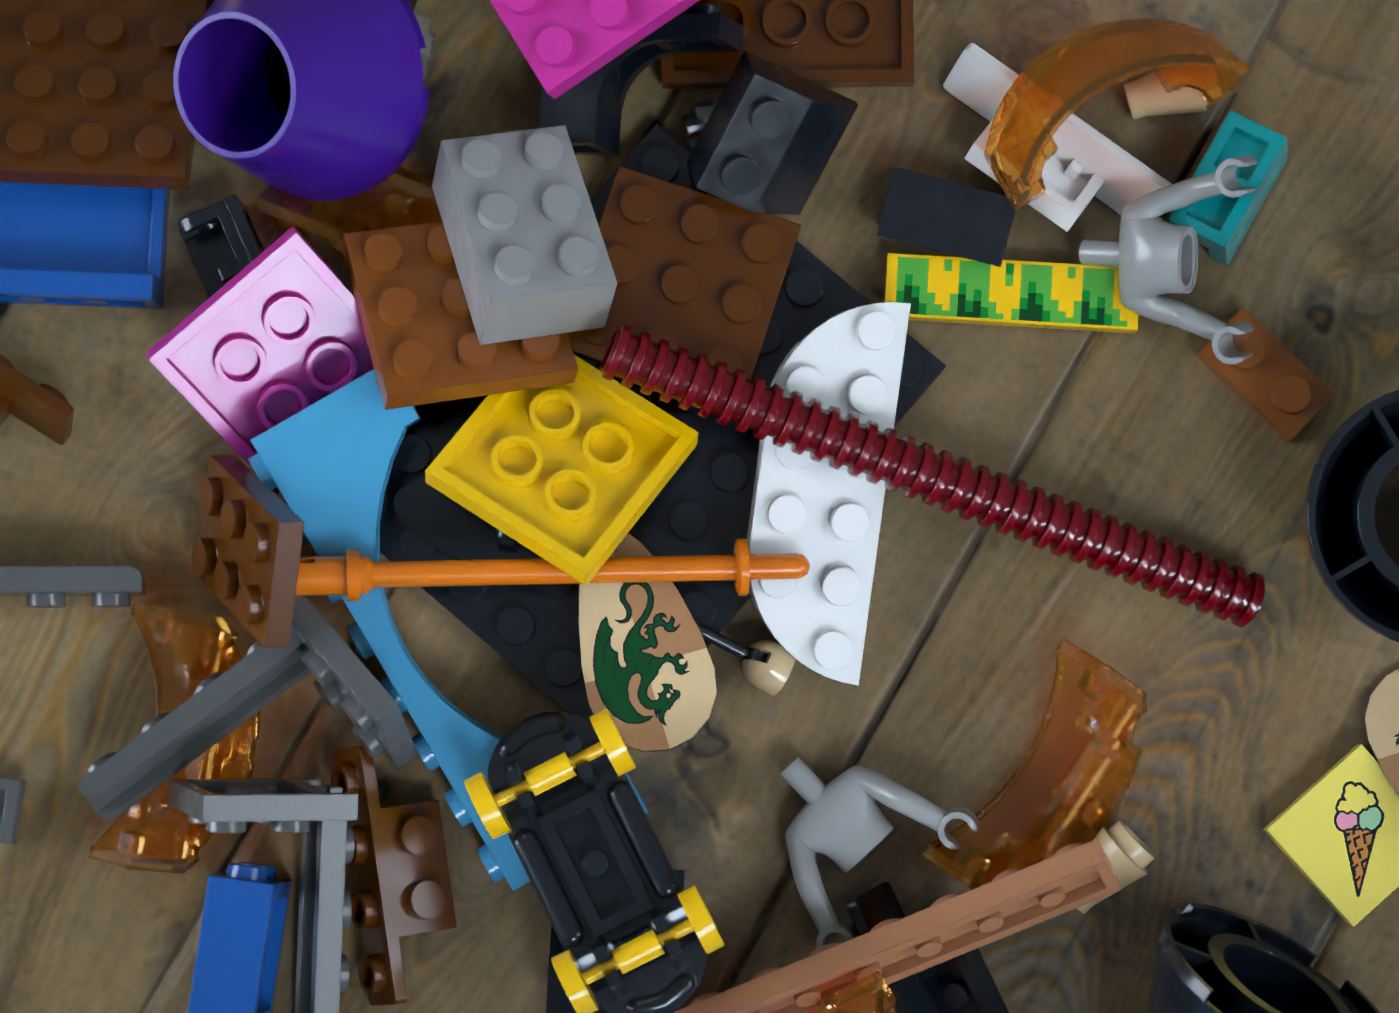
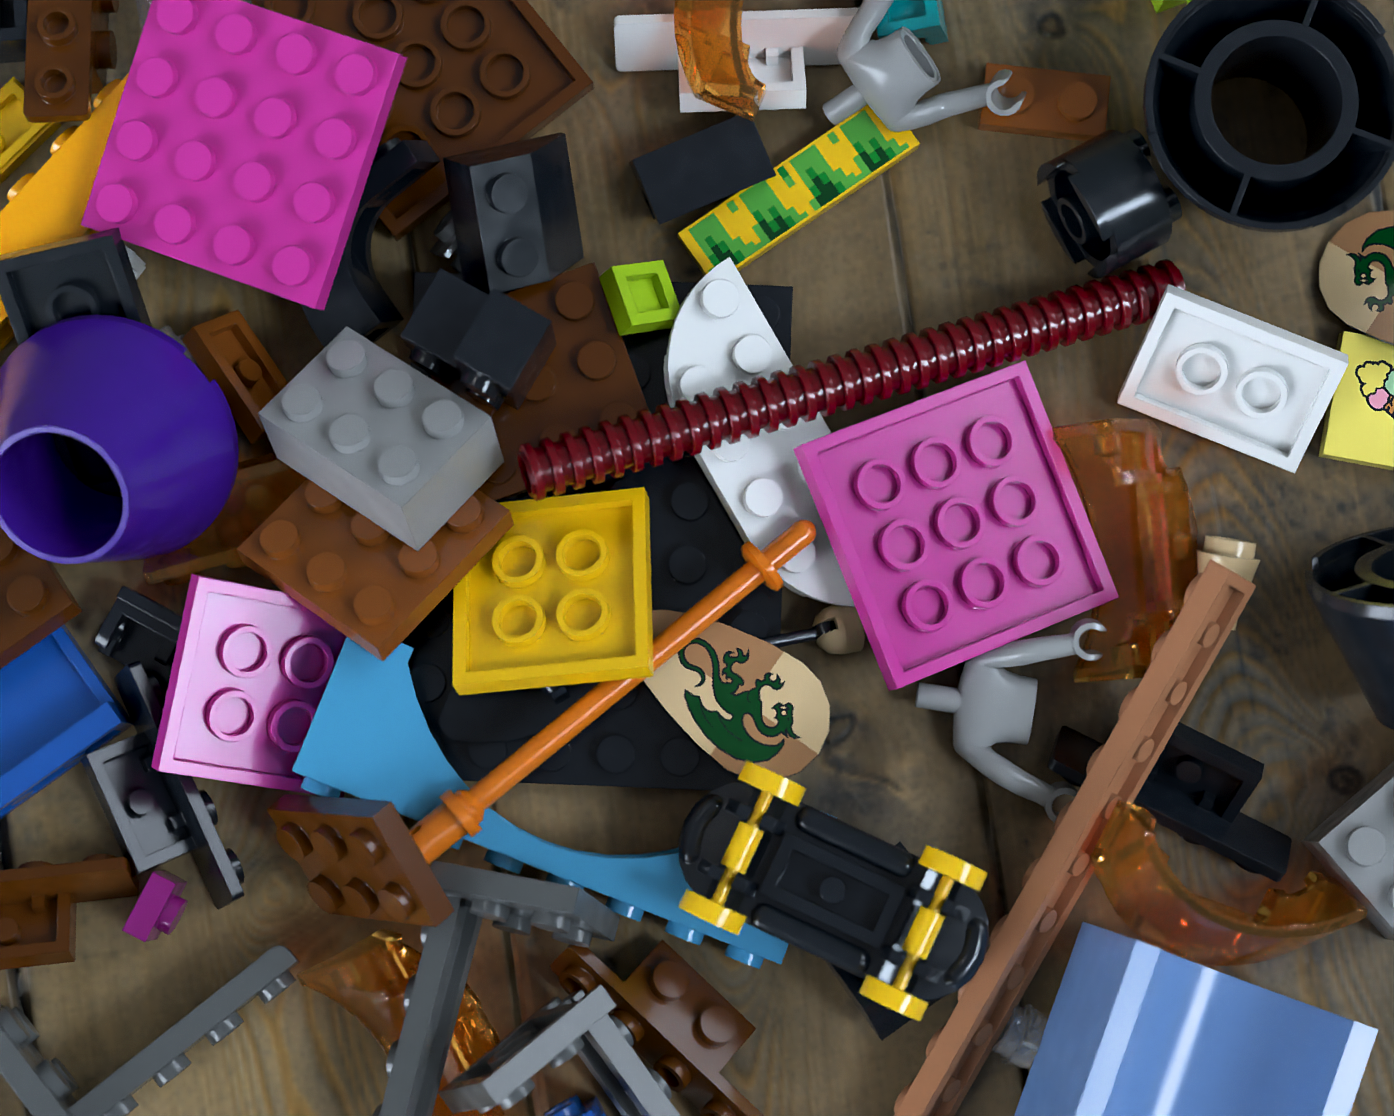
camera: 45 degrees left, 0 degrees up
(68, 465) = (157, 907): none -> magenta plate
(124, 392) = (154, 811): none -> black bracket
(458, 91) = (240, 365): none -> dark orange plate
(660, 217) = (481, 339): none -> black brick
(815, 280) = (640, 297): none -> lime plate
(924, 655) = (956, 524): none -> dark pink plate
(1238, 712) = (1232, 378): none -> white plate
(1249, 493) = (1108, 201): none -> black brick

